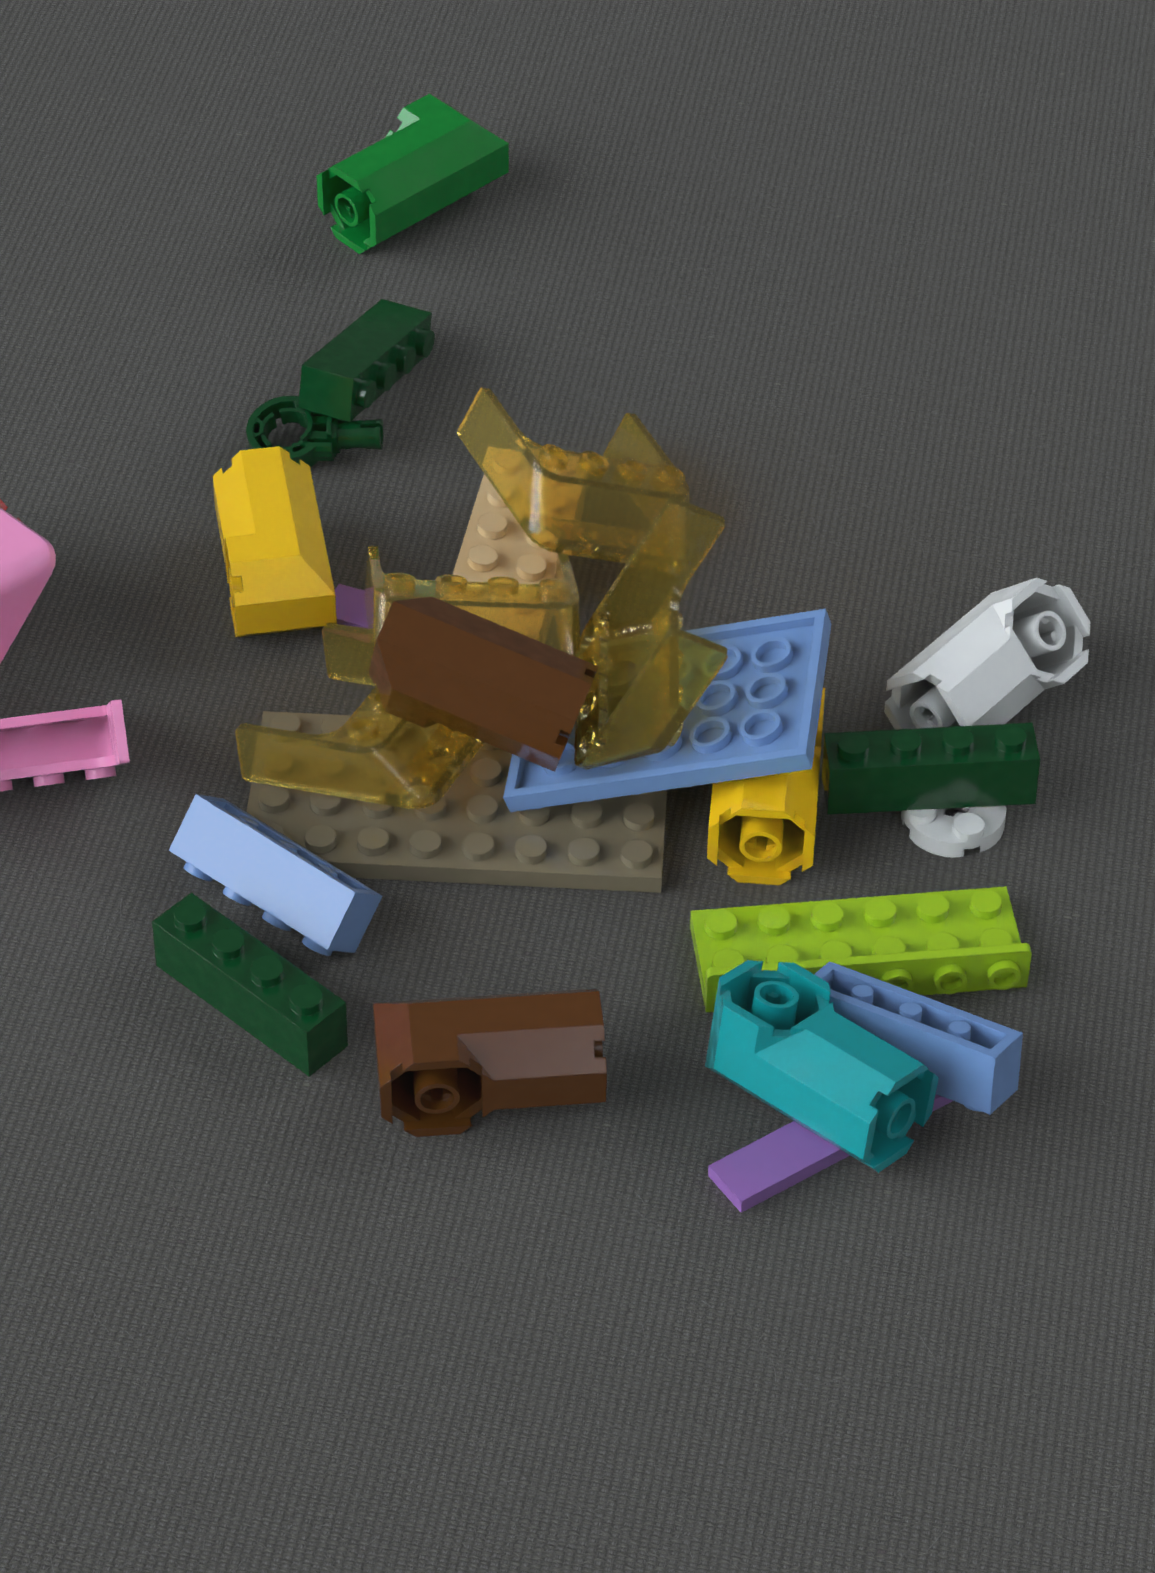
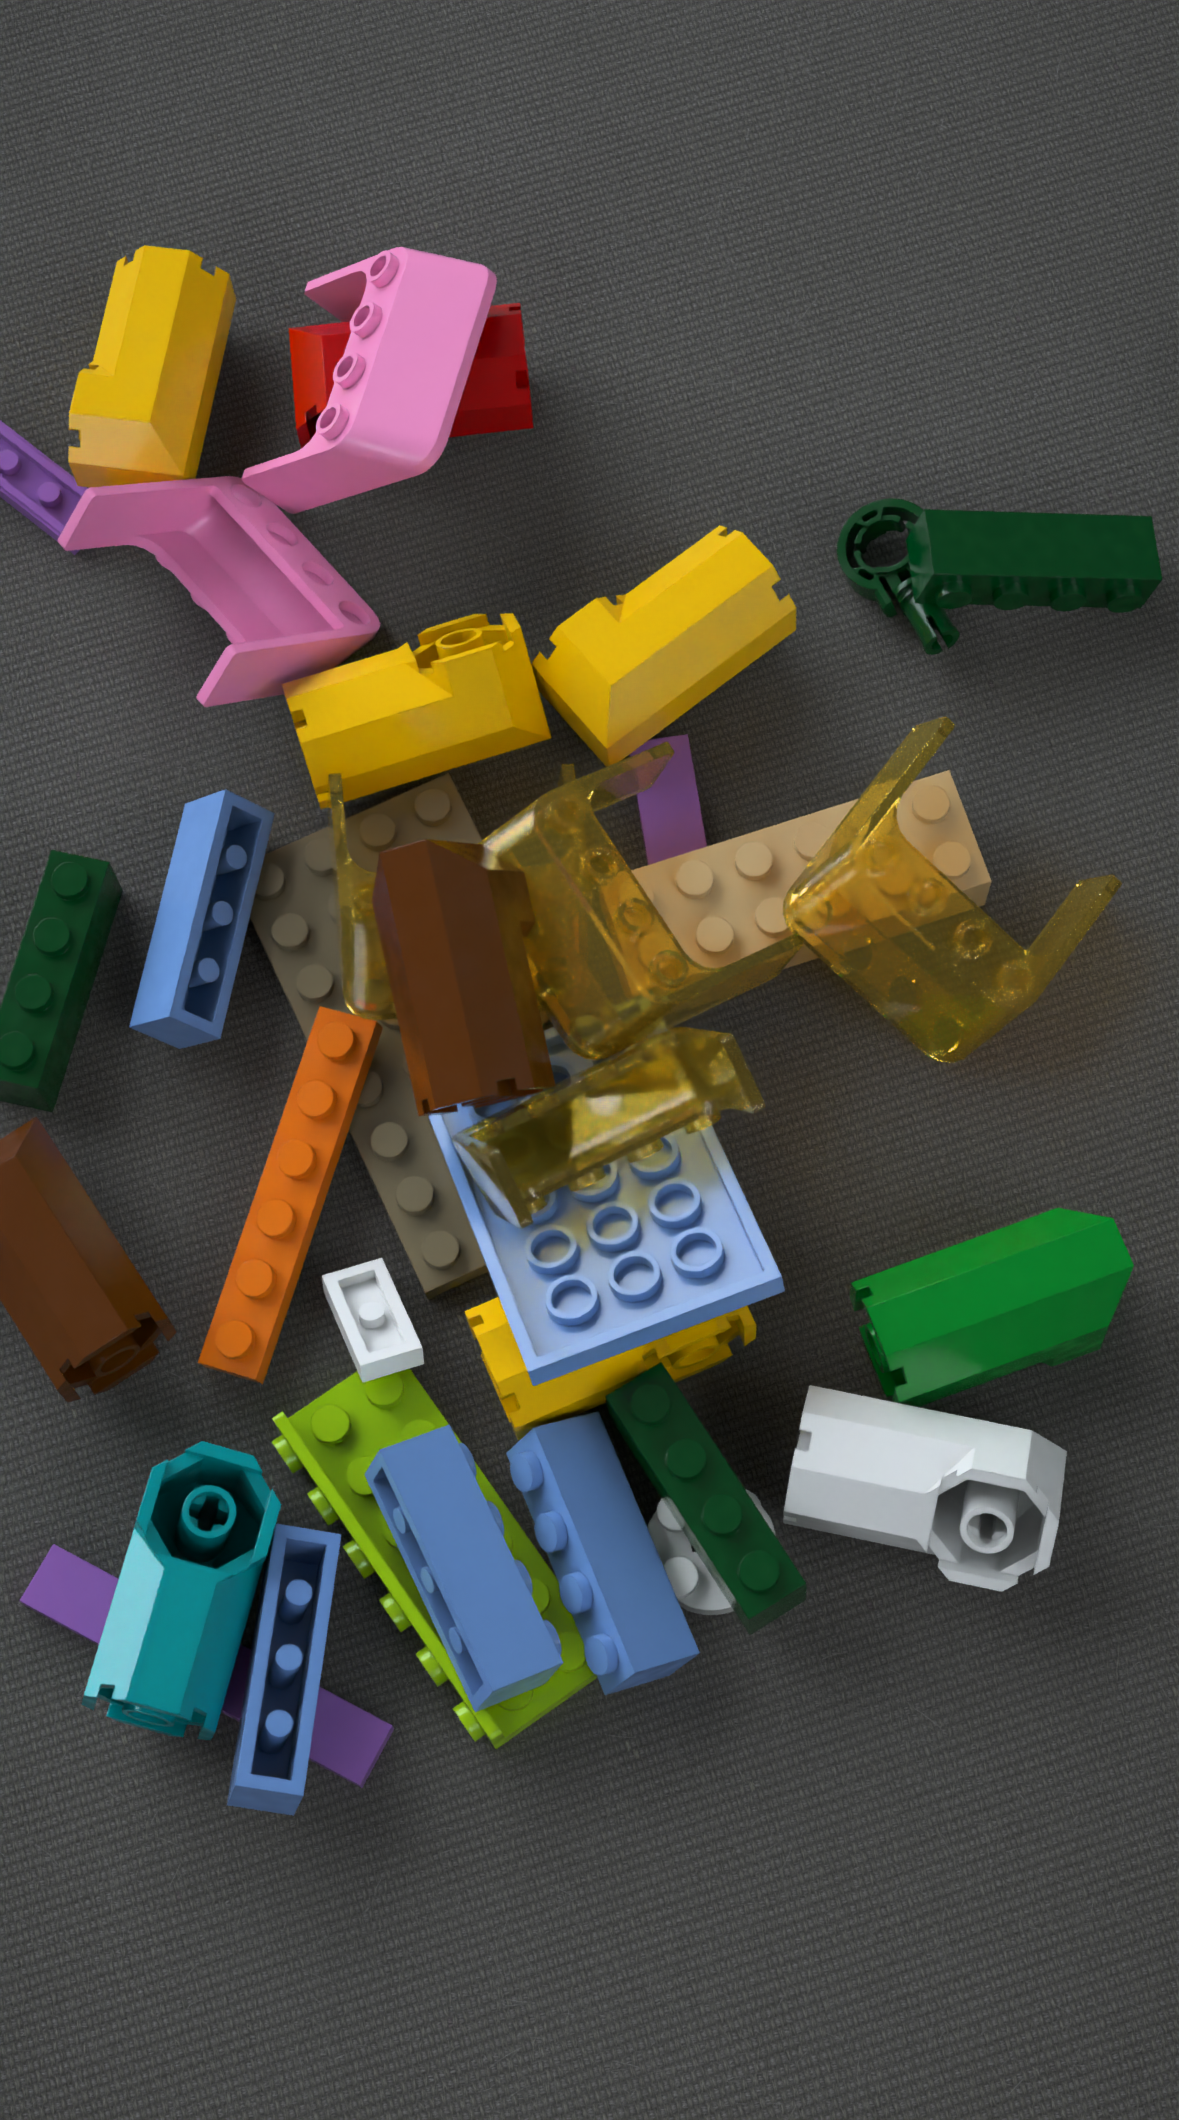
camera: 70 degrees right, 25 degrees up
(208, 683) = (421, 710): none -> yellow brick
(533, 914) = (290, 1195): none -> orange plate
(666, 904) = (372, 1320): none -> white plate
(885, 586) = (993, 1305): none -> green brick
(899, 905) = (464, 1567): none -> medium blue brick
(928, 850) = (601, 1553): none -> medium blue brick

